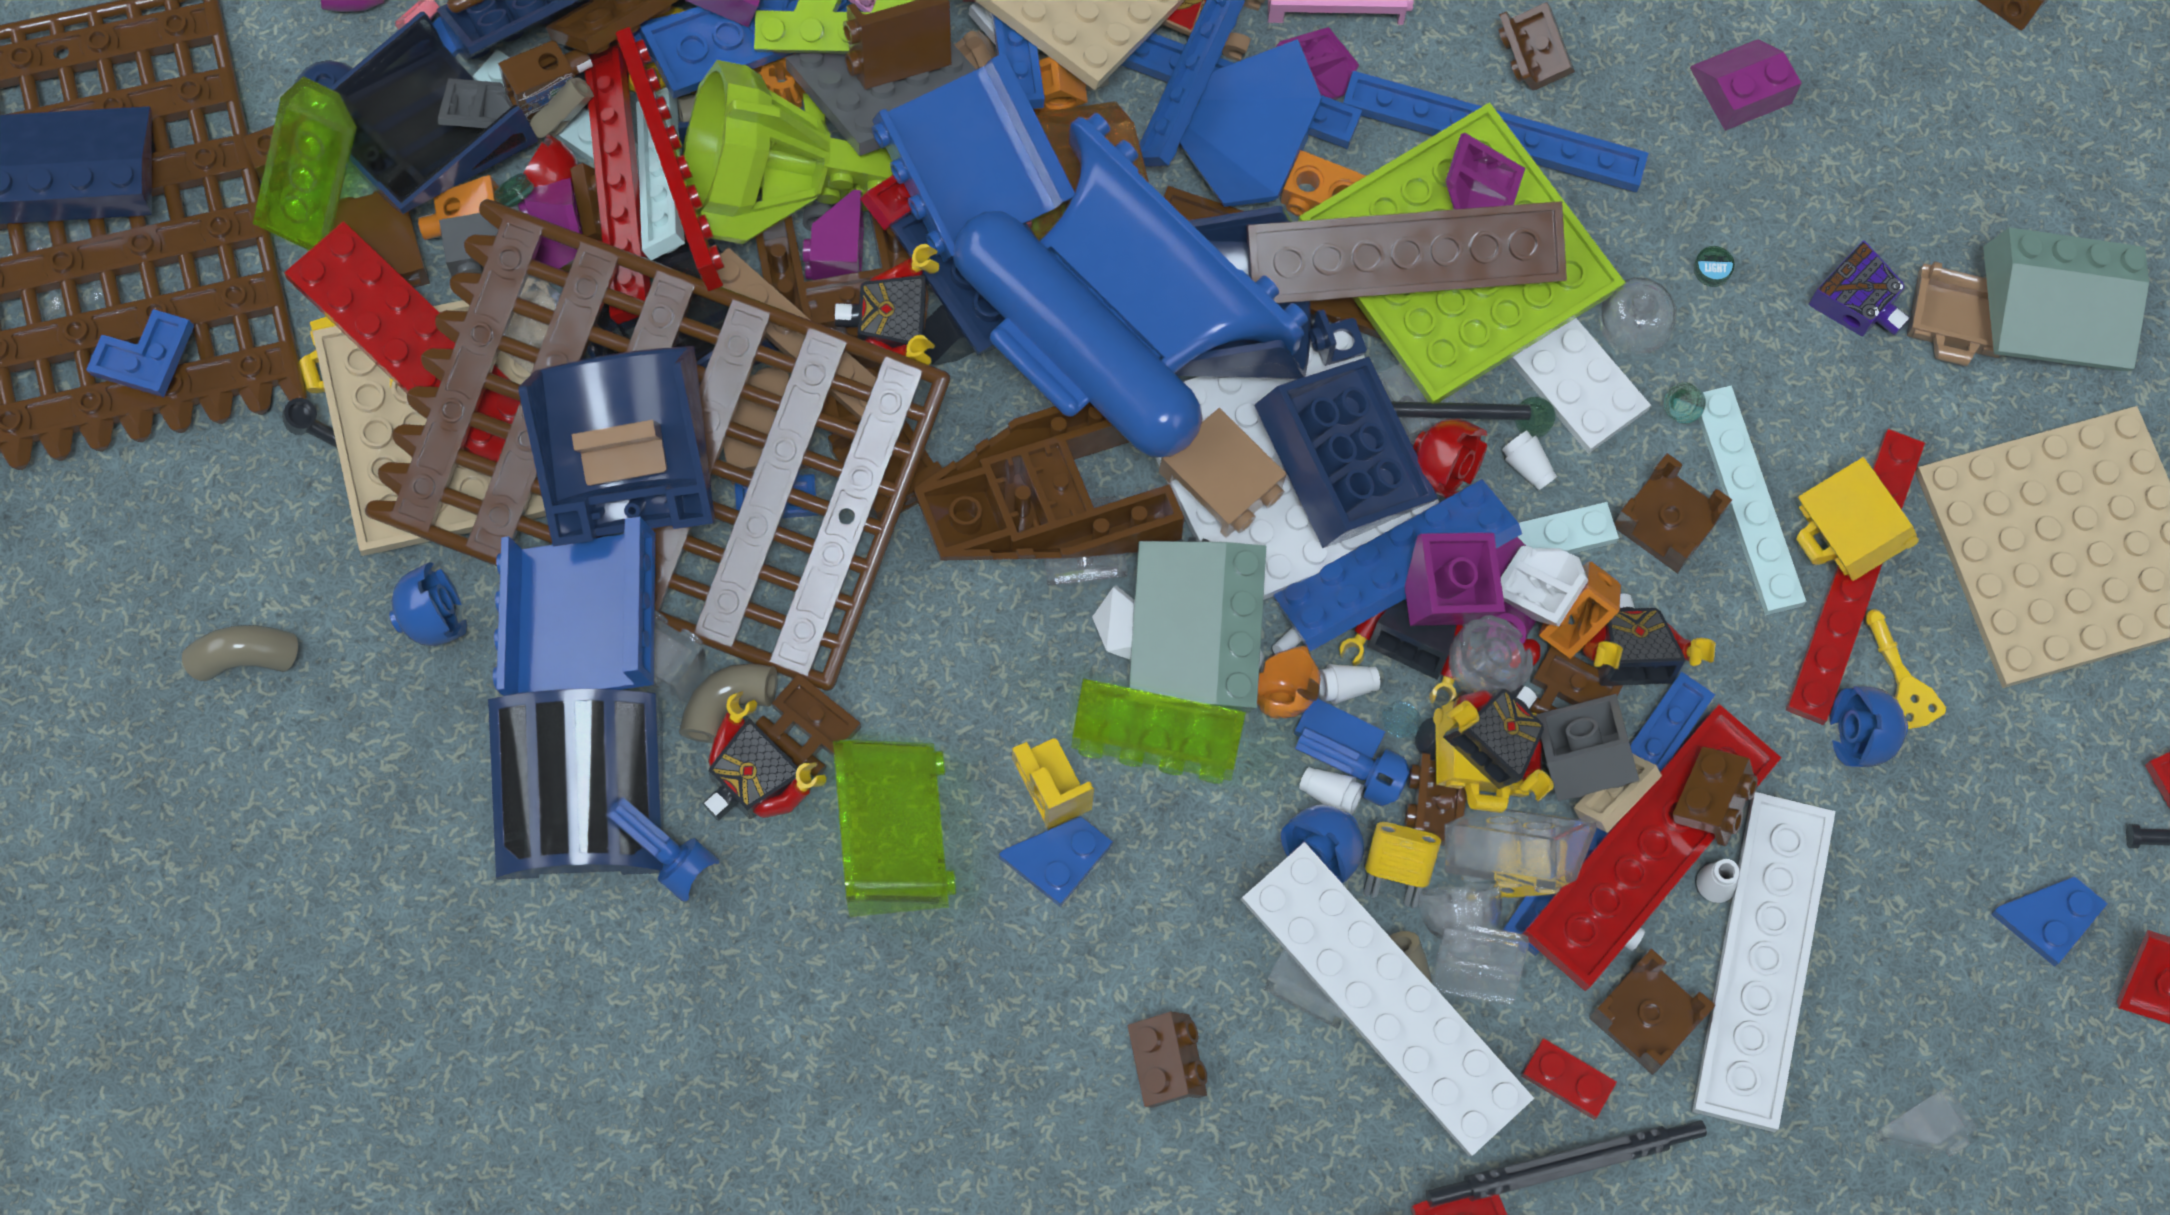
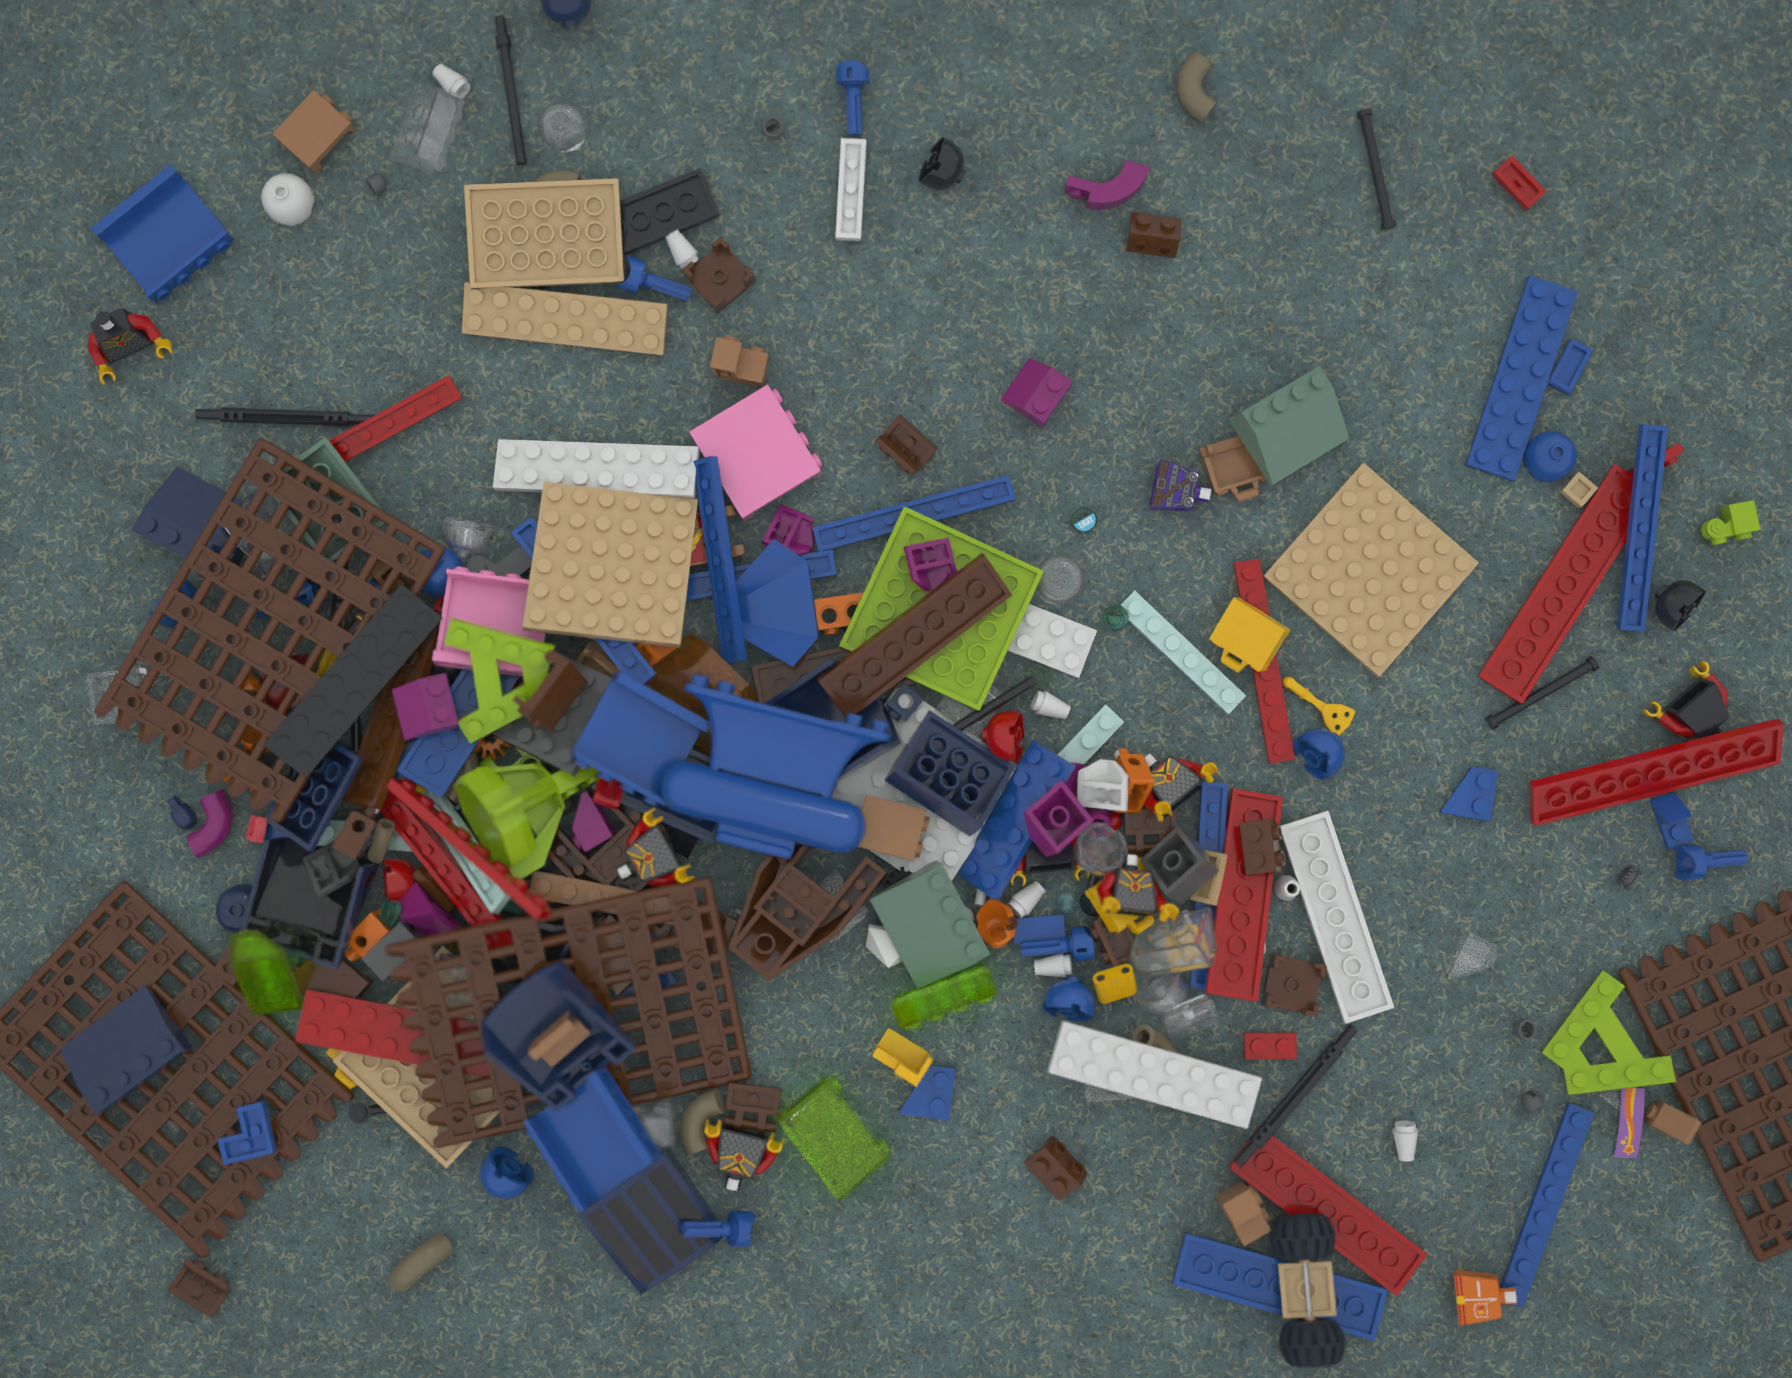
camera: 30 degrees left, 15 degrees up
(1670, 515) = (1145, 690): reddish brown panel -> none

